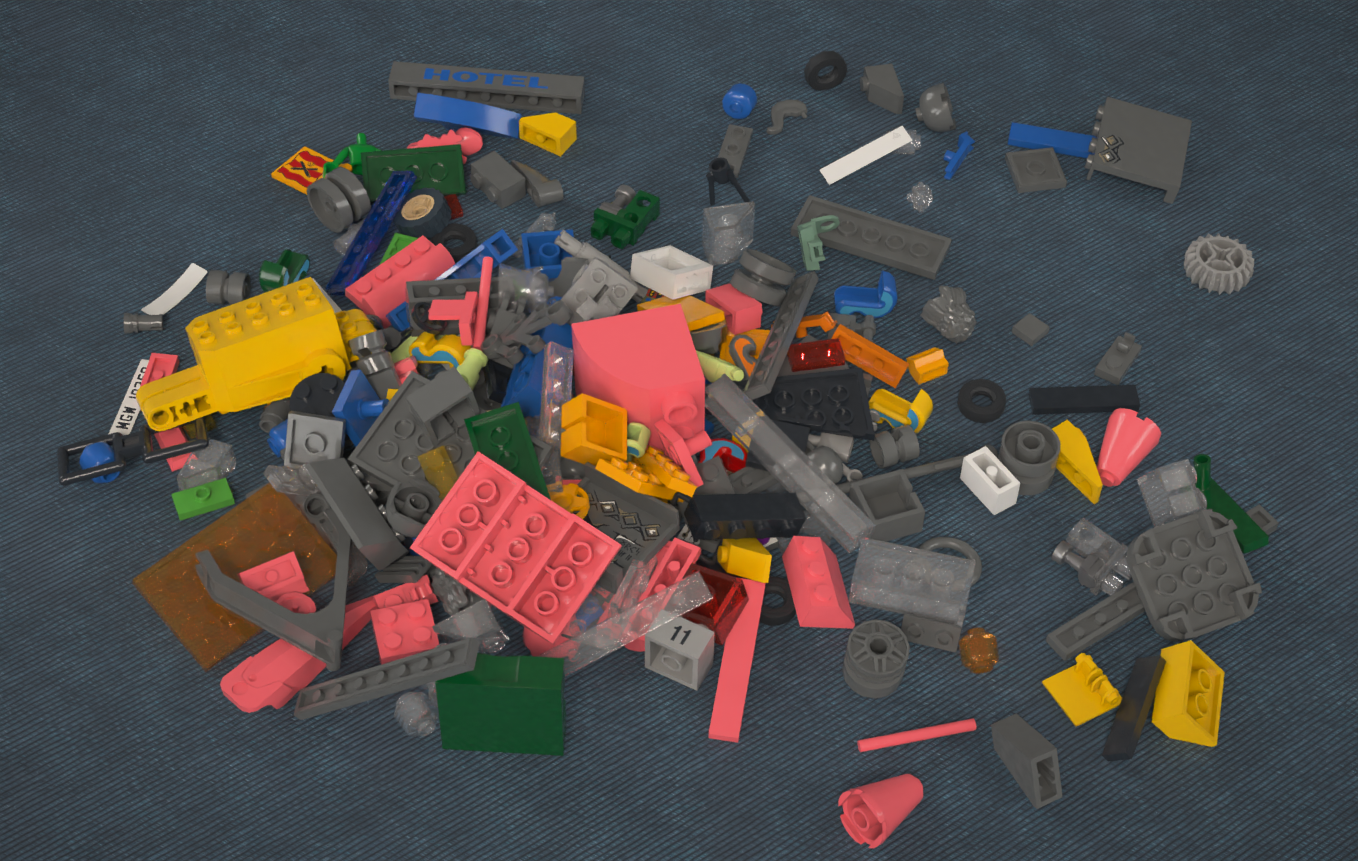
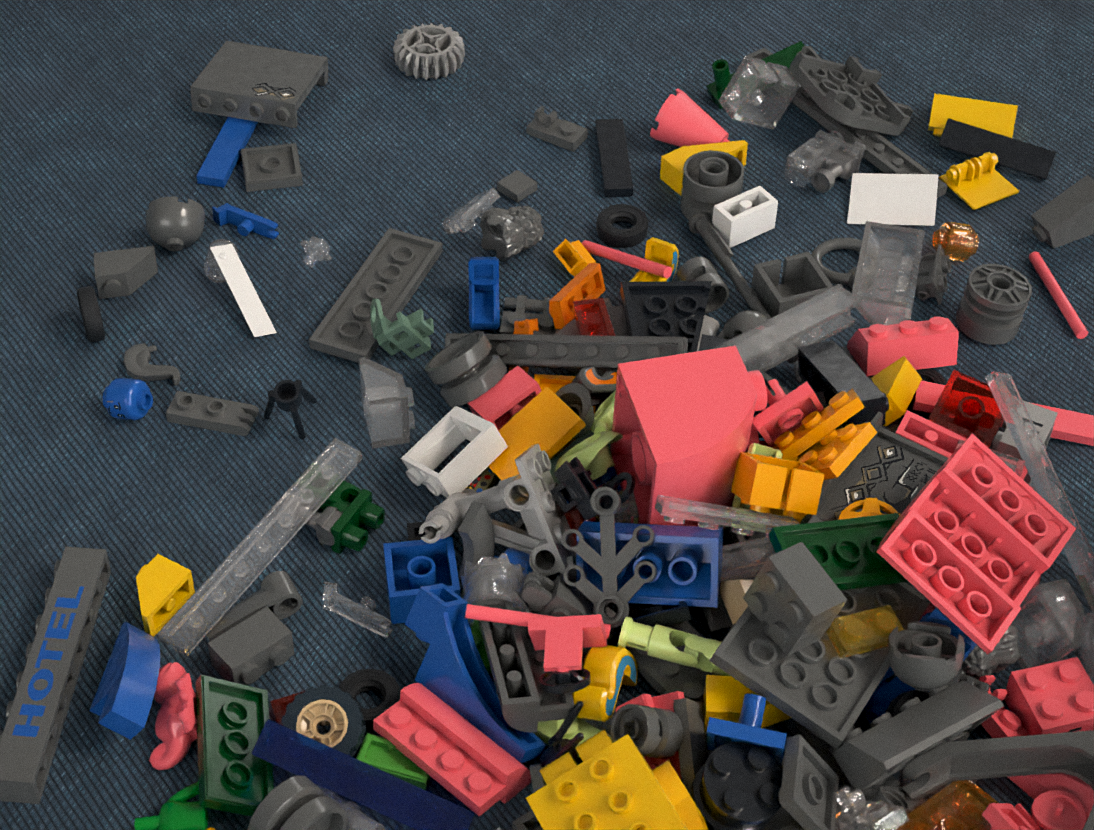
camera: 90 degrees left, 5 degrees down
(587, 175) = (259, 547): none -> clear tile
(928, 387) = (627, 259): none -> coral bar
(978, 290) = (465, 215): none -> clear hinge
(1043, 610) = (893, 199): none -> white sticker

